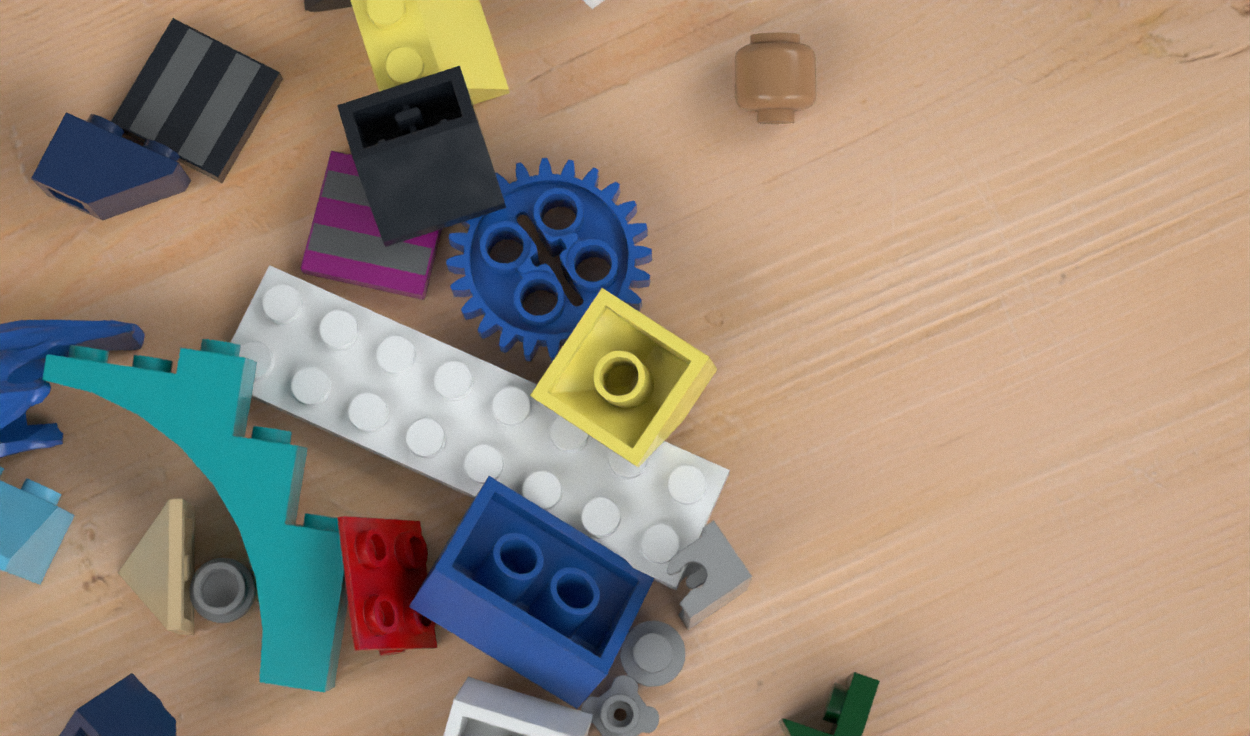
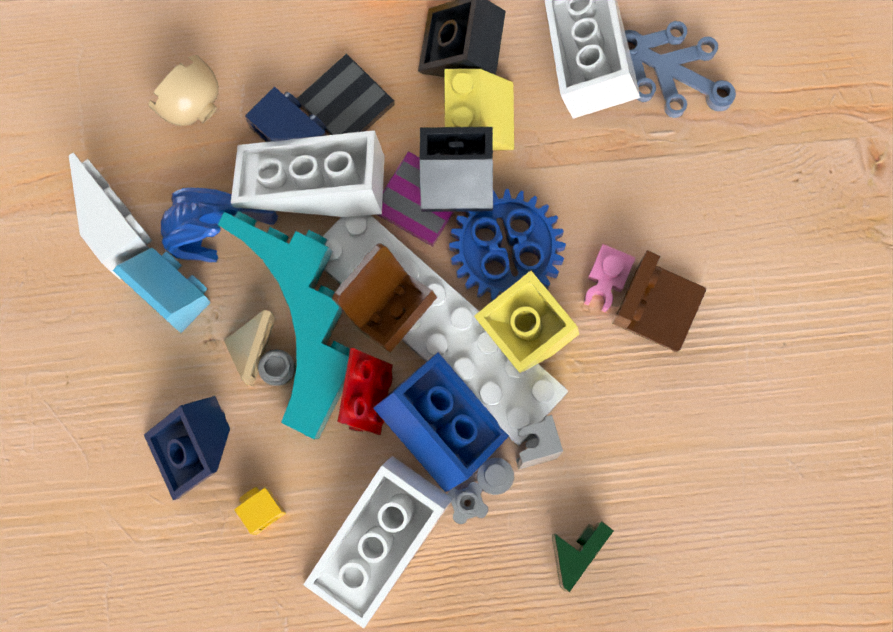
camera: 15 degrees right, 0 degrees up
(179, 244) = (312, 175): none -> white slope
(366, 414) = (383, 298): none -> reddish brown bracket
(735, 248) = (609, 273): none -> bright pink plate
(775, 77) = (661, 186): medium nougat head -> none
(835, 276) = (659, 304): none -> reddish brown bracket

